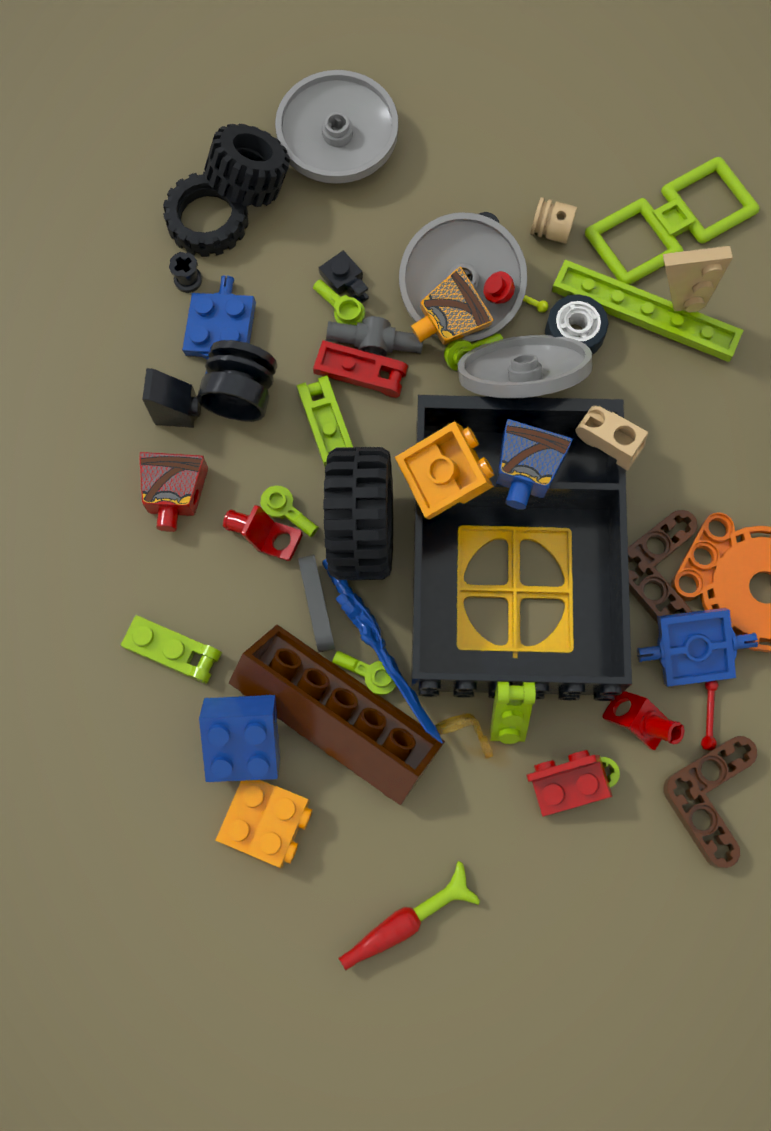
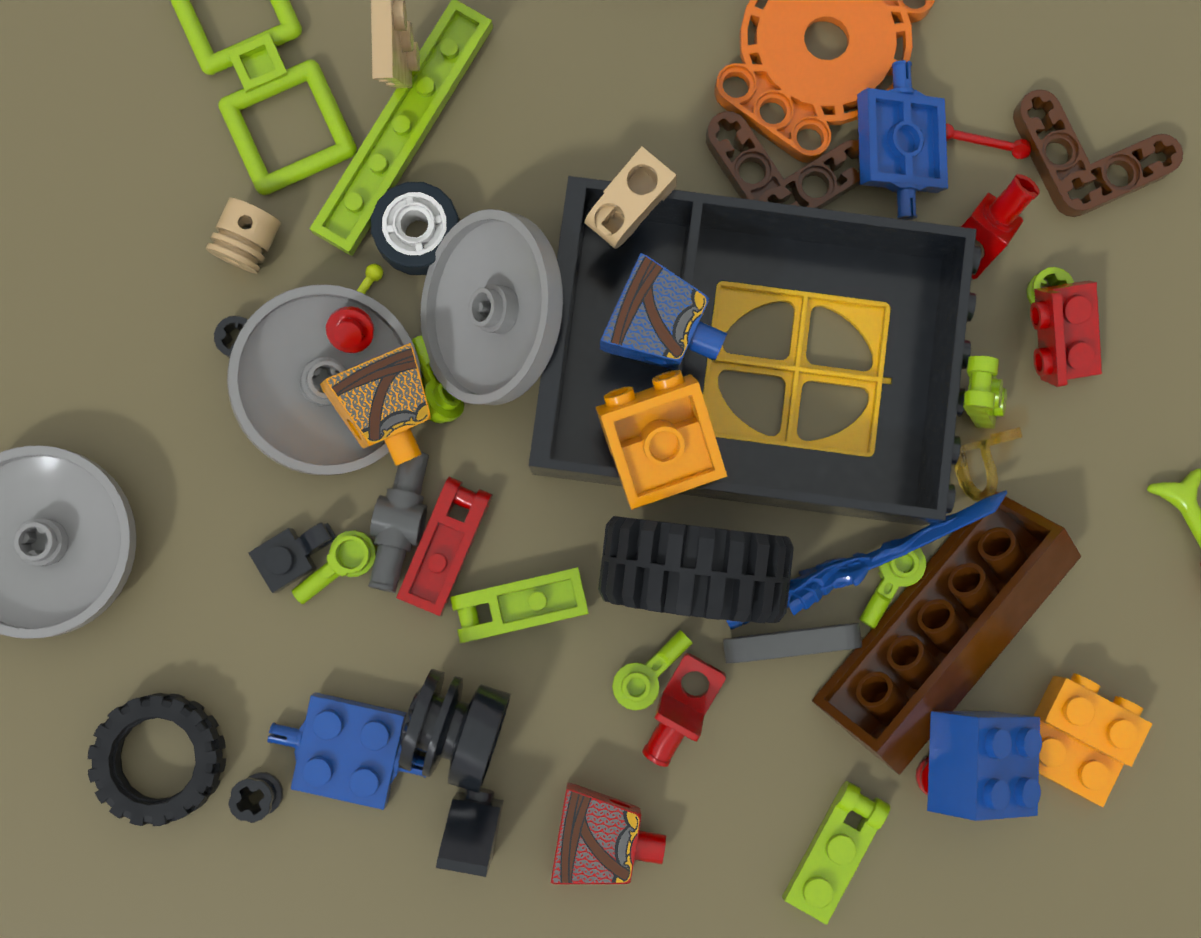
camera: 90 degrees left, 10 degrees up
(246, 165) = (68, 670): black tyre -> none

